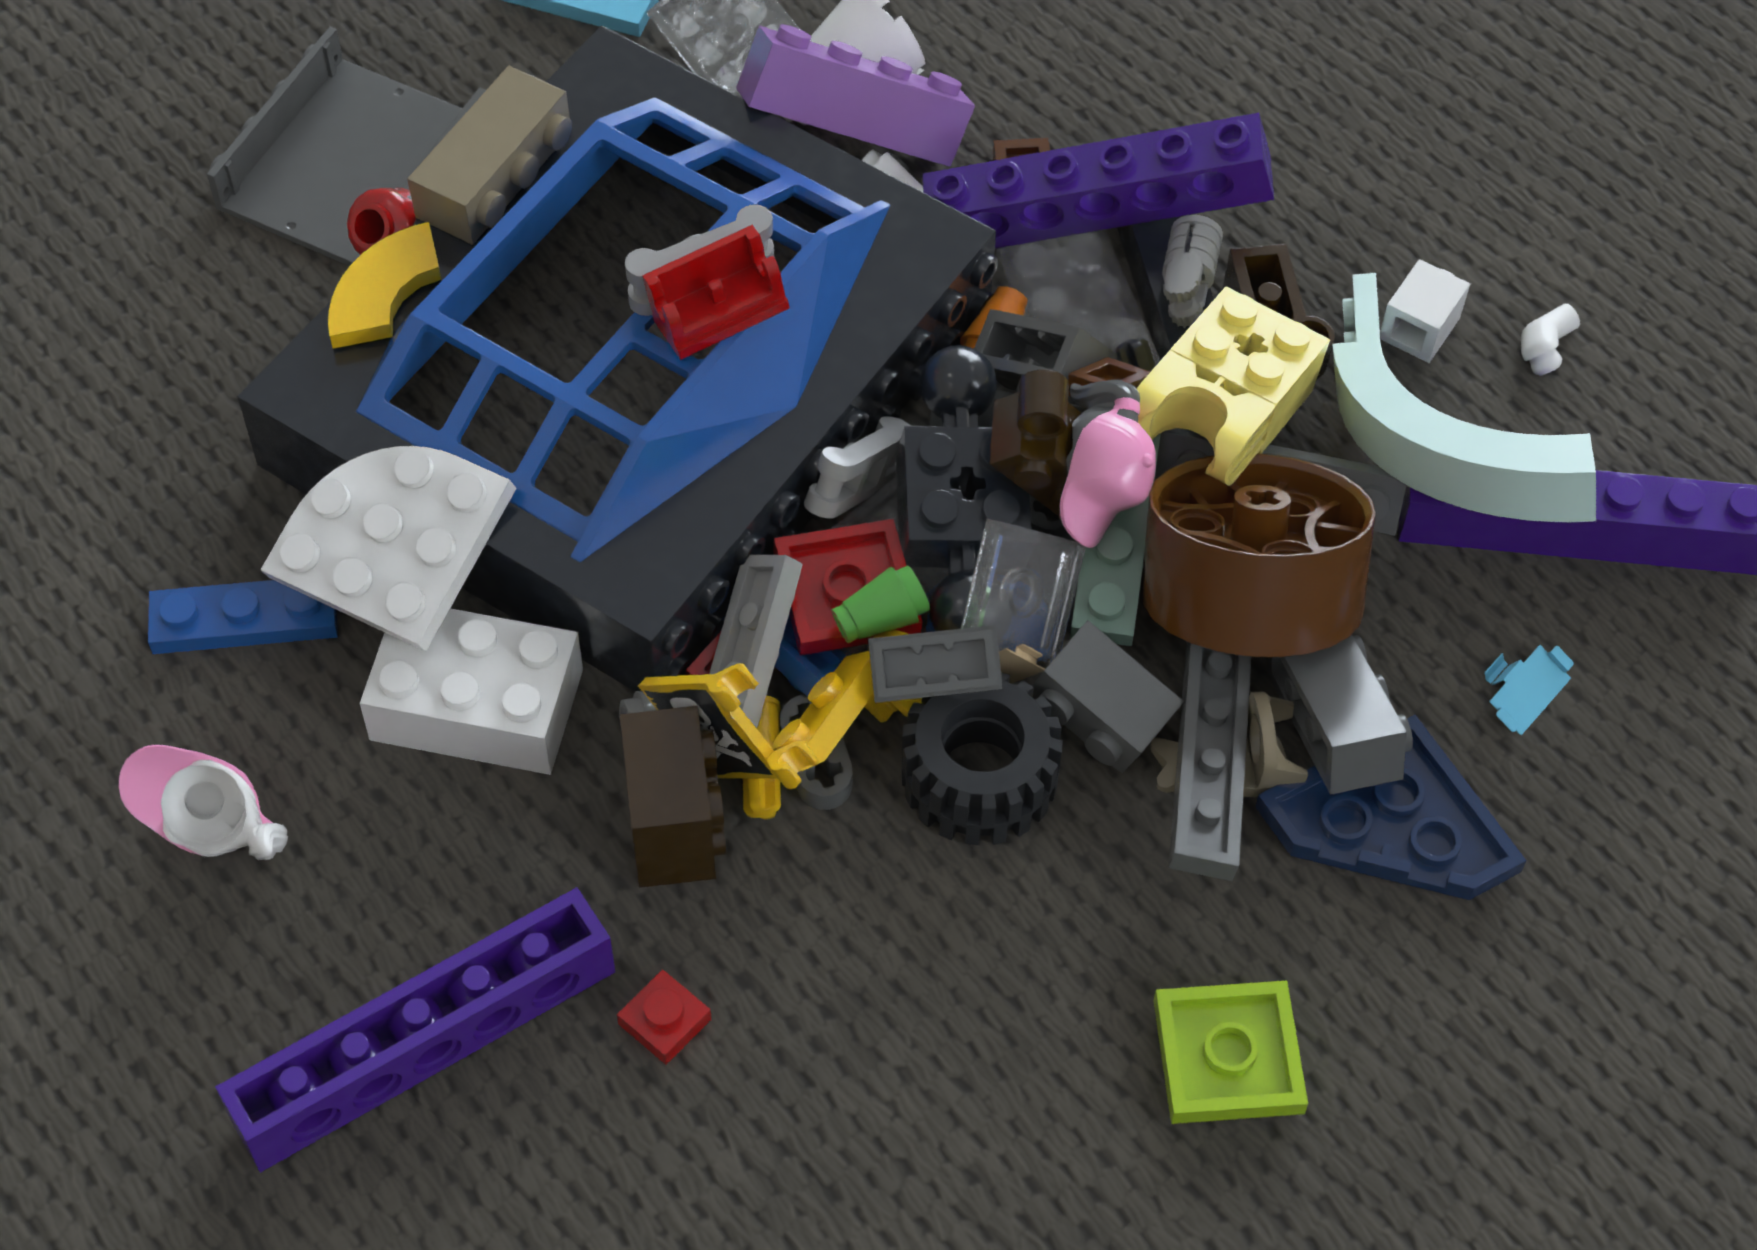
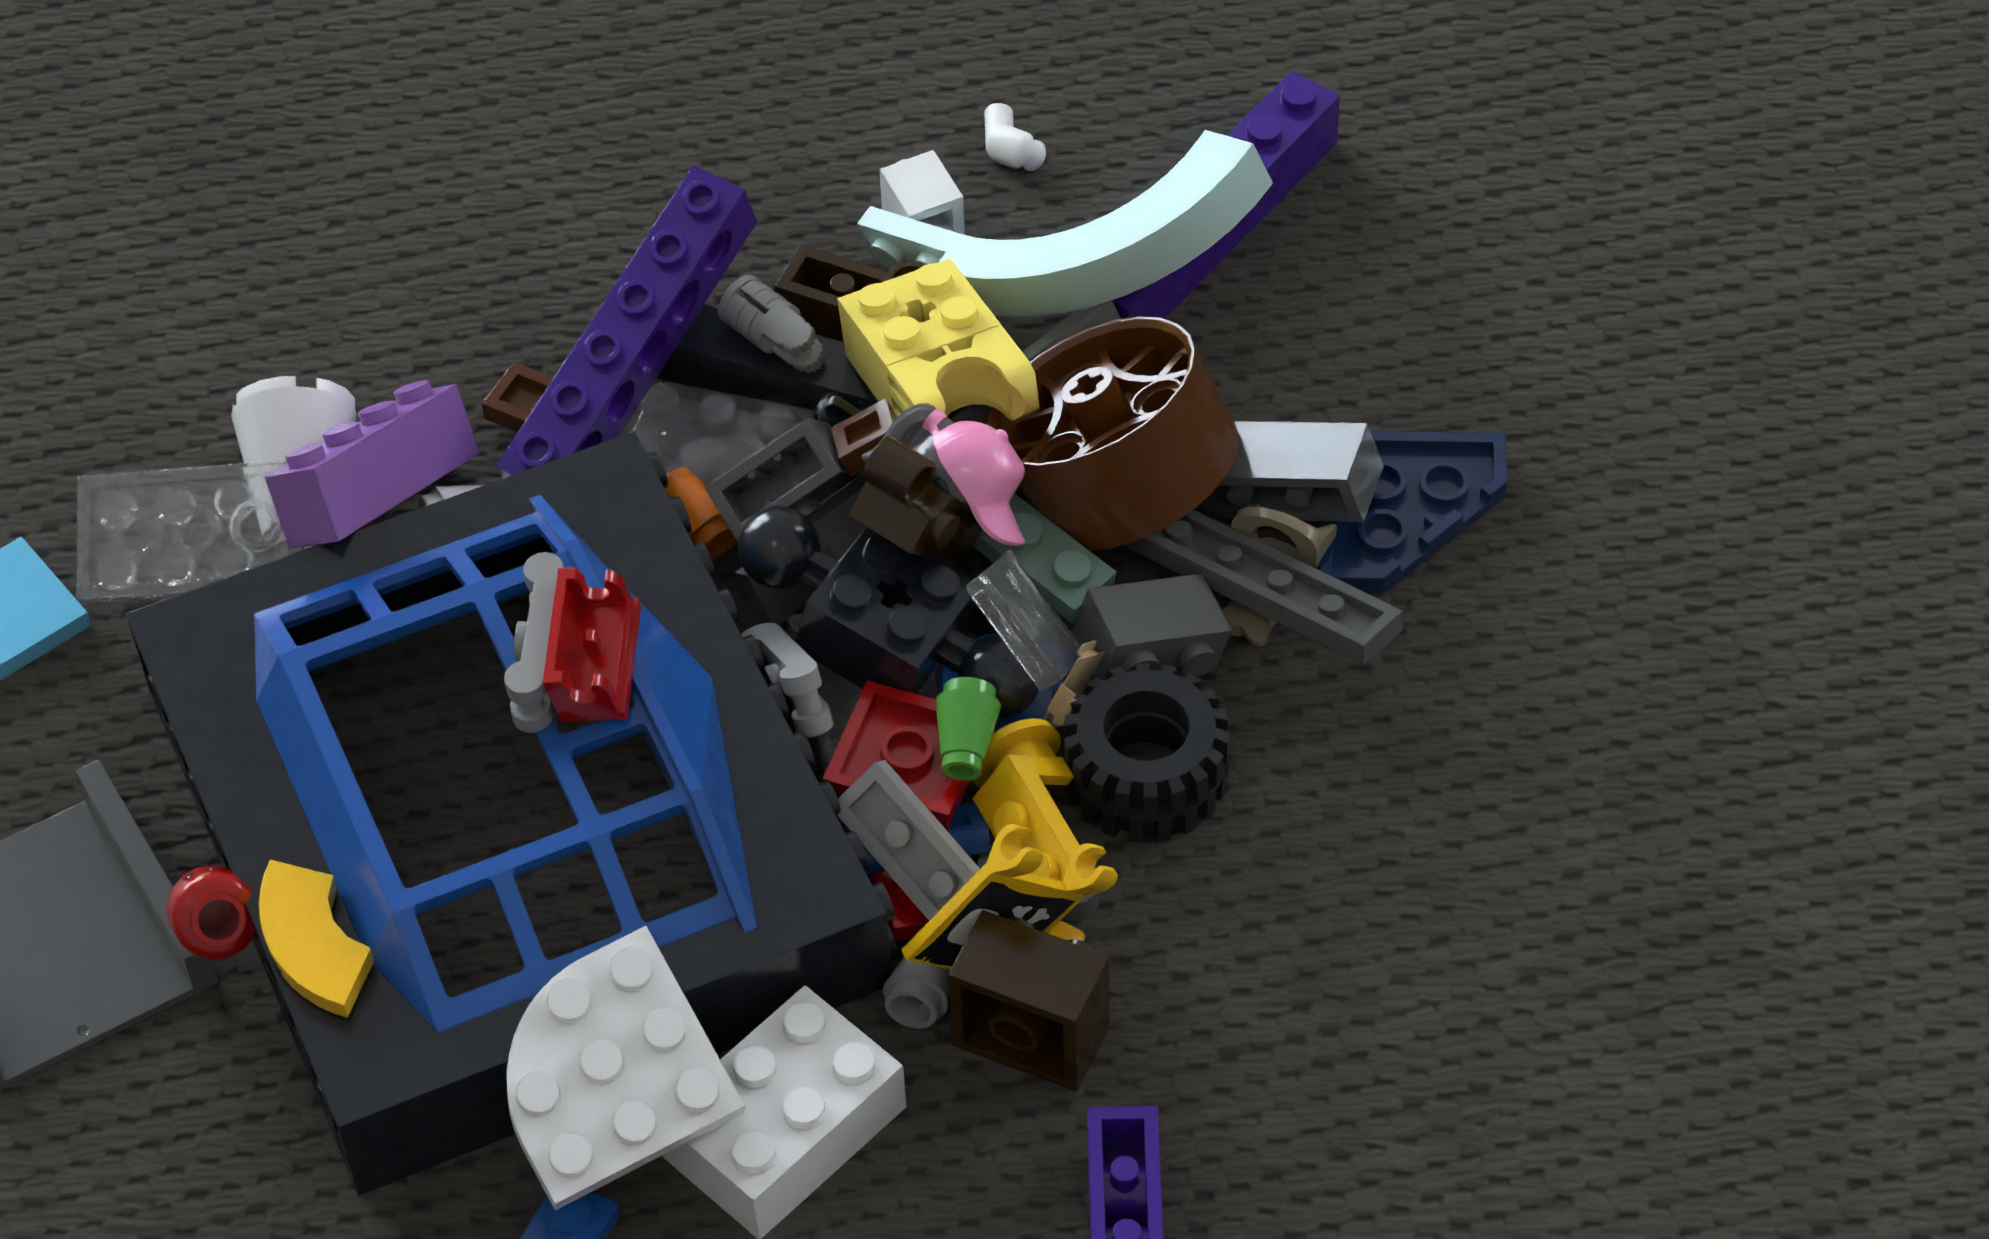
camera: 55 degrees left, 5 degrees down
(490, 155) = (236, 767): dark tan brick -> none
(664, 1017) = (1228, 1130): red plate -> none
(935, 664) = (1060, 715): dark grey plate -> none
(1230, 1052) = (1540, 730): lime plate -> none
(1528, 686) = (1336, 344): medium azure piece -> none

